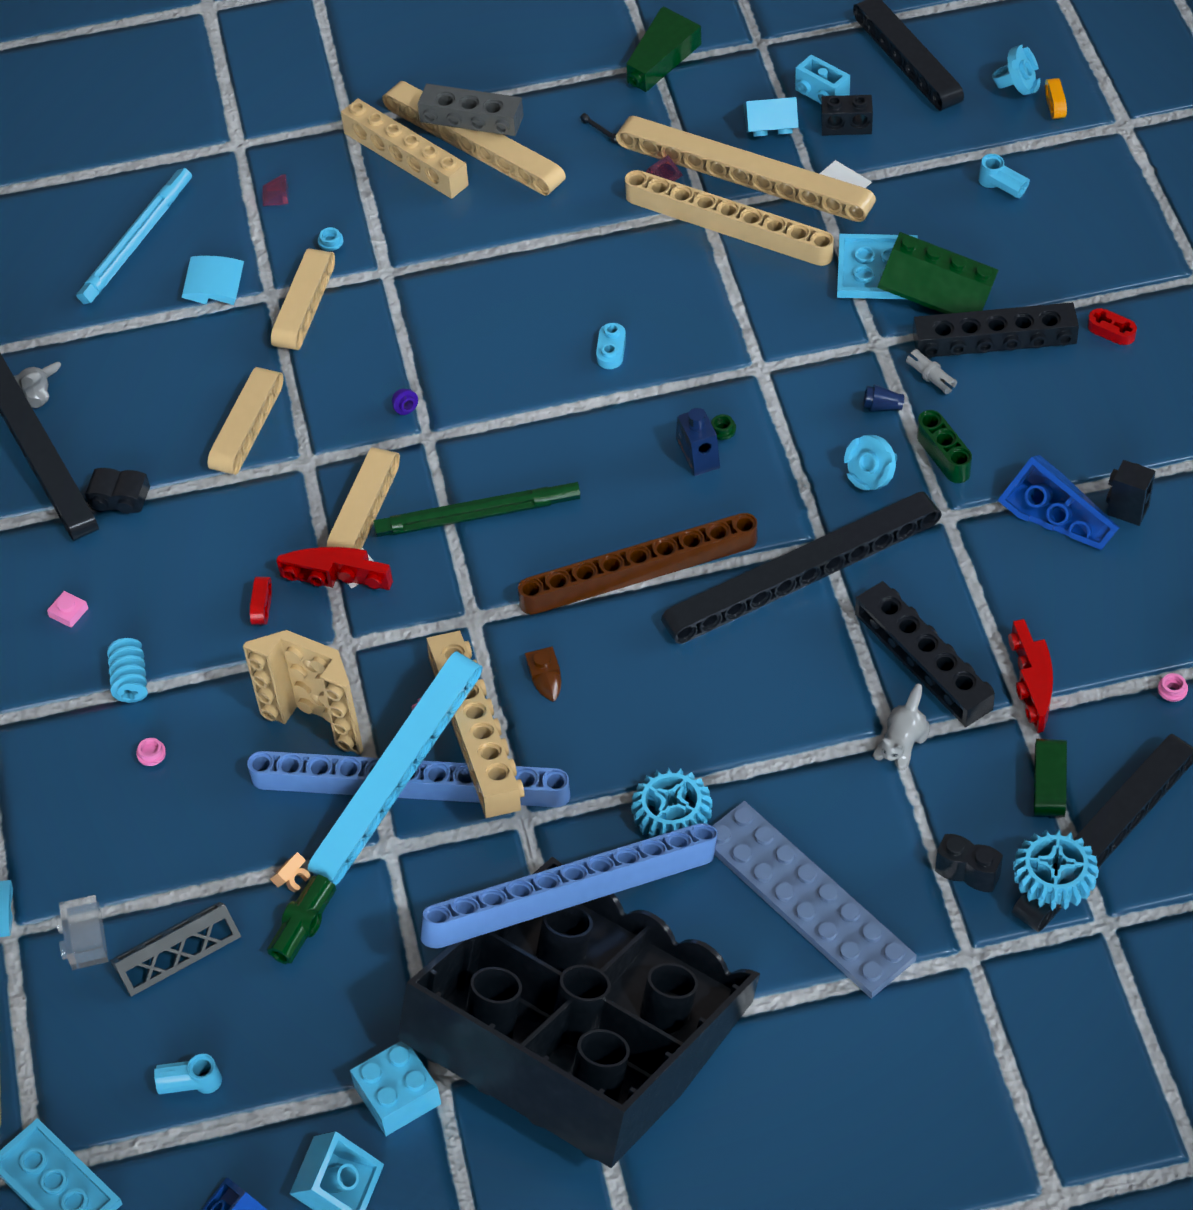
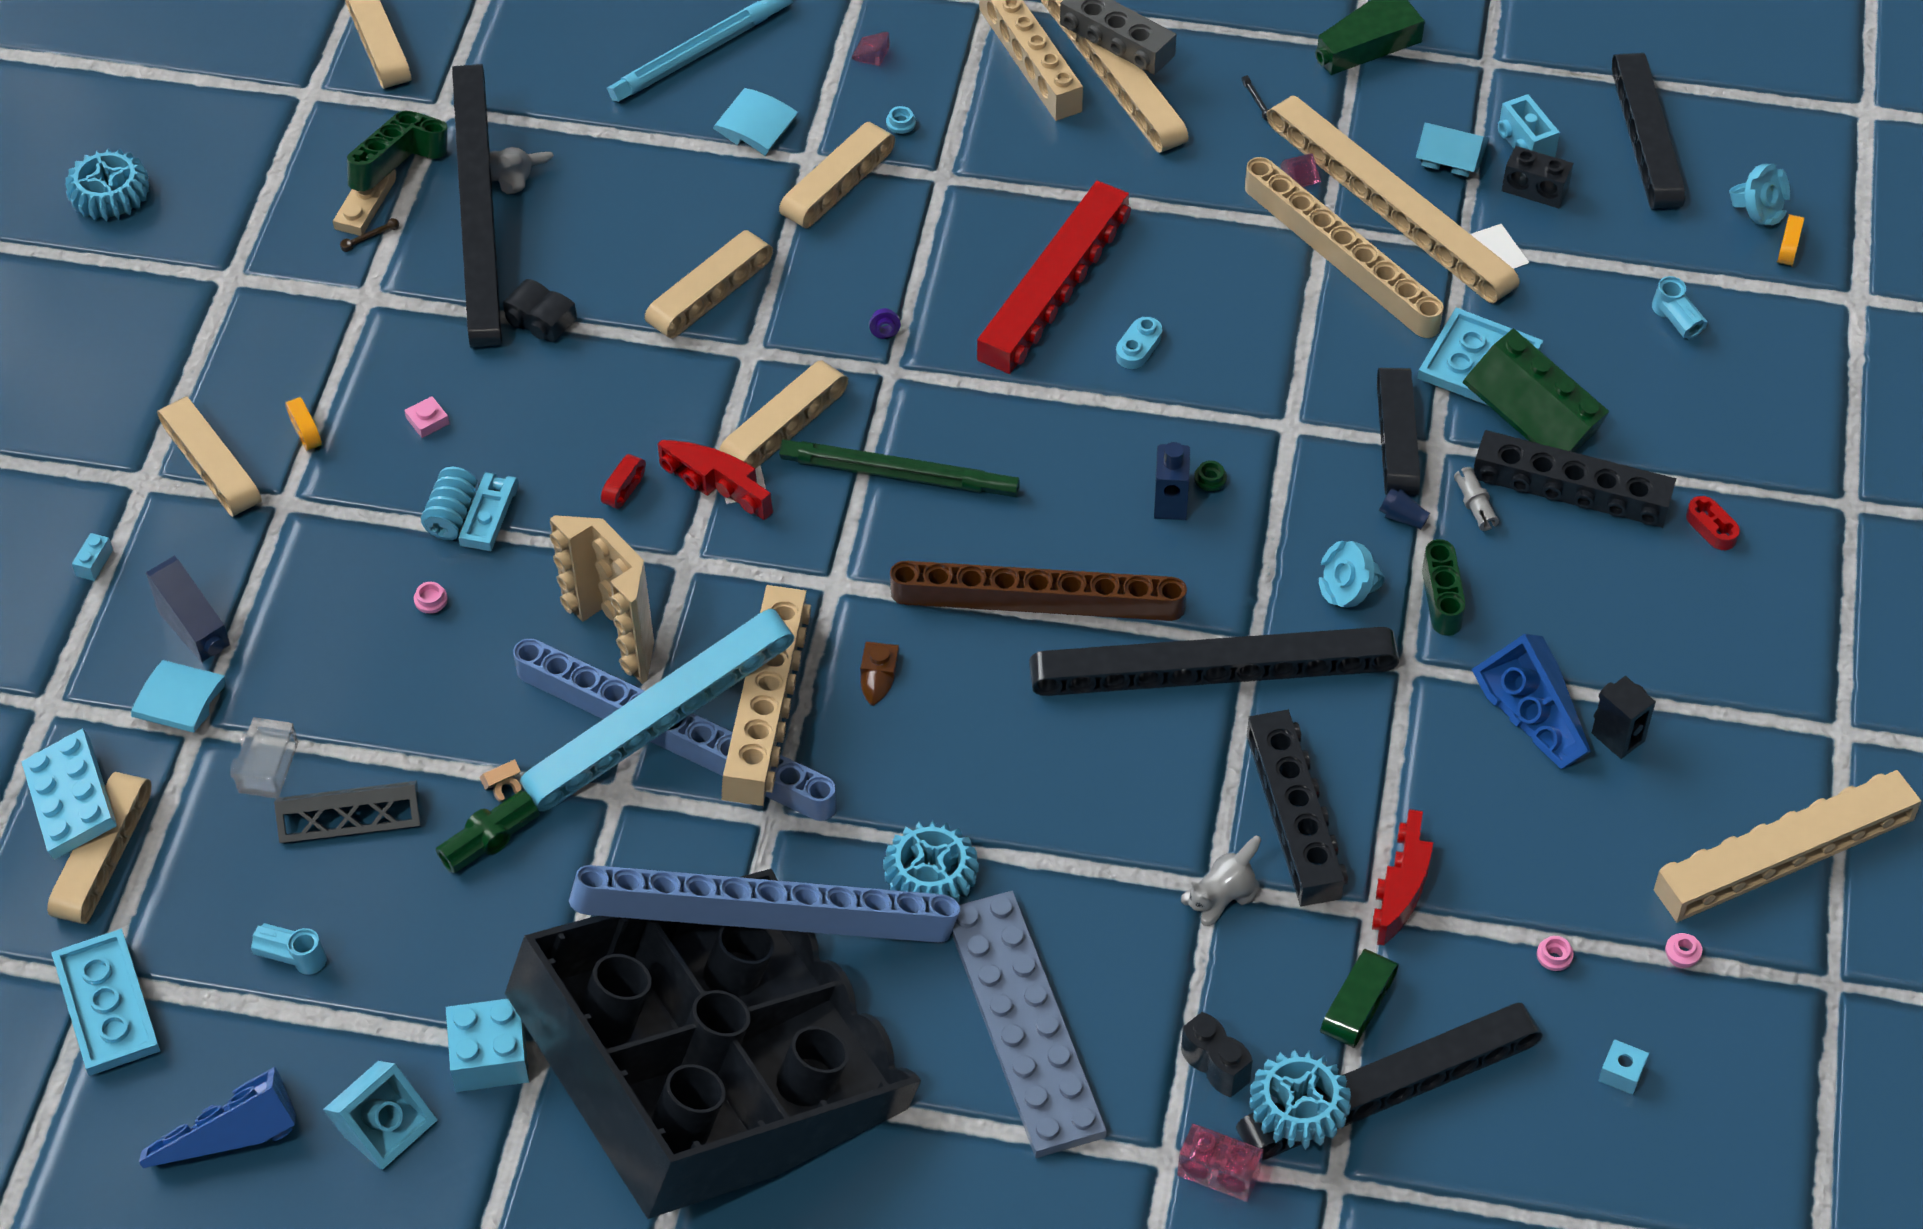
camera: 20 degrees right, 0 degrees up
(161, 666) = (488, 511): none -> medium azure plate
(519, 319) = (1053, 277): none -> red brick
(846, 341) = (1398, 430): none -> black beam
(1016, 943) = (1220, 1162): none -> clear pink brick

